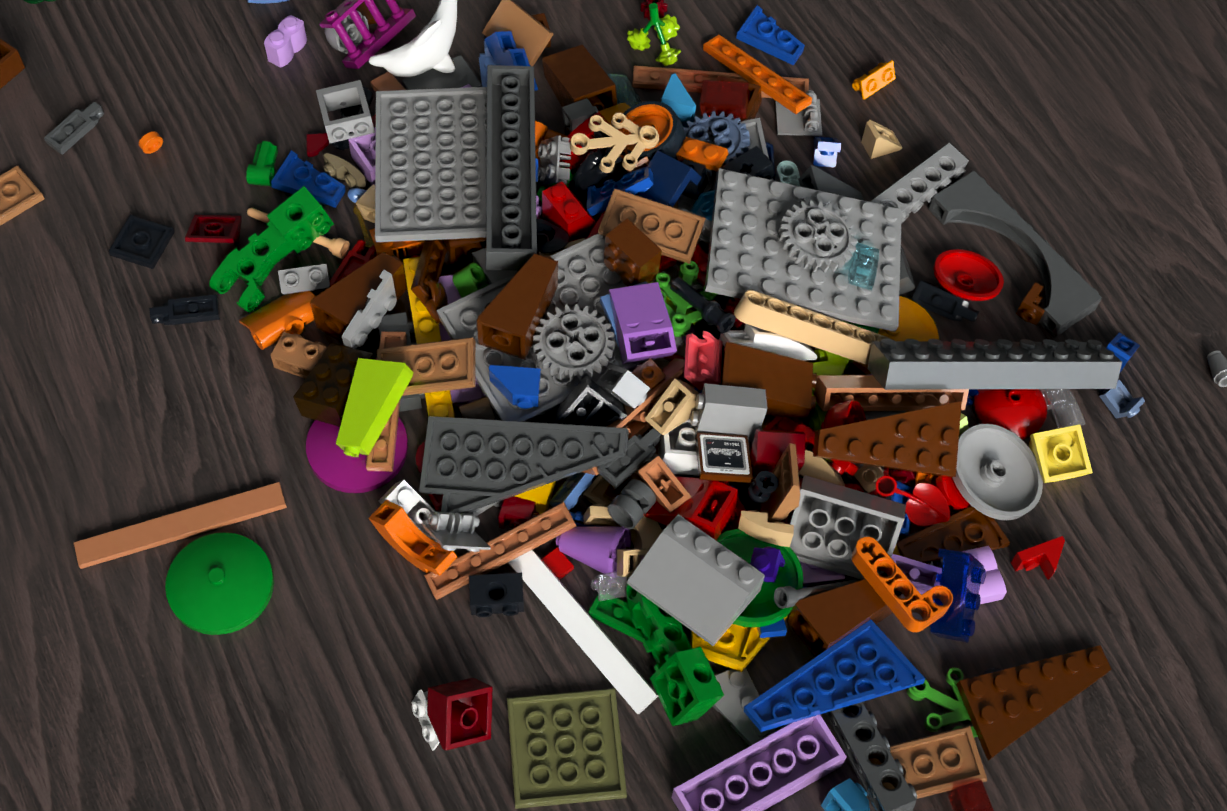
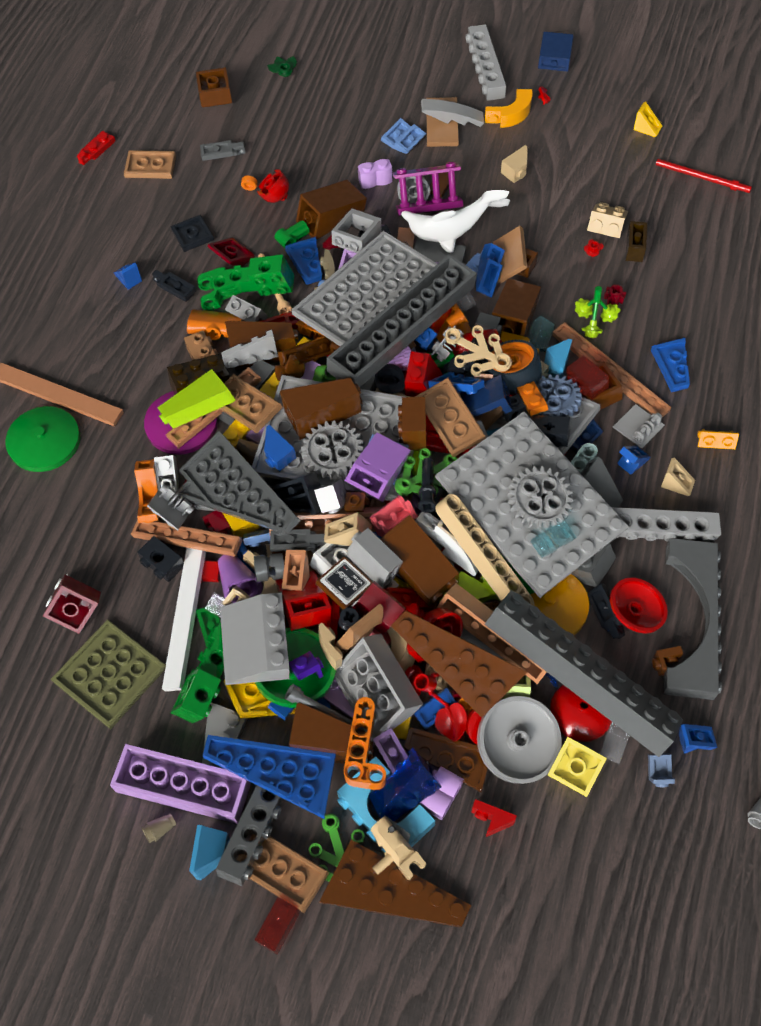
camera: 50 degrees right, 0 degrees up
(118, 336) = (128, 275): none -> blue slope
(189, 126) = (274, 187): none -> red cylinder
(276, 108) = (327, 206): none -> reddish brown slope
(757, 74) = (636, 380): orange tile -> none
(986, 651) = (357, 799): none -> medium azure arch
(1000, 646) = (397, 847): none -> tan piece

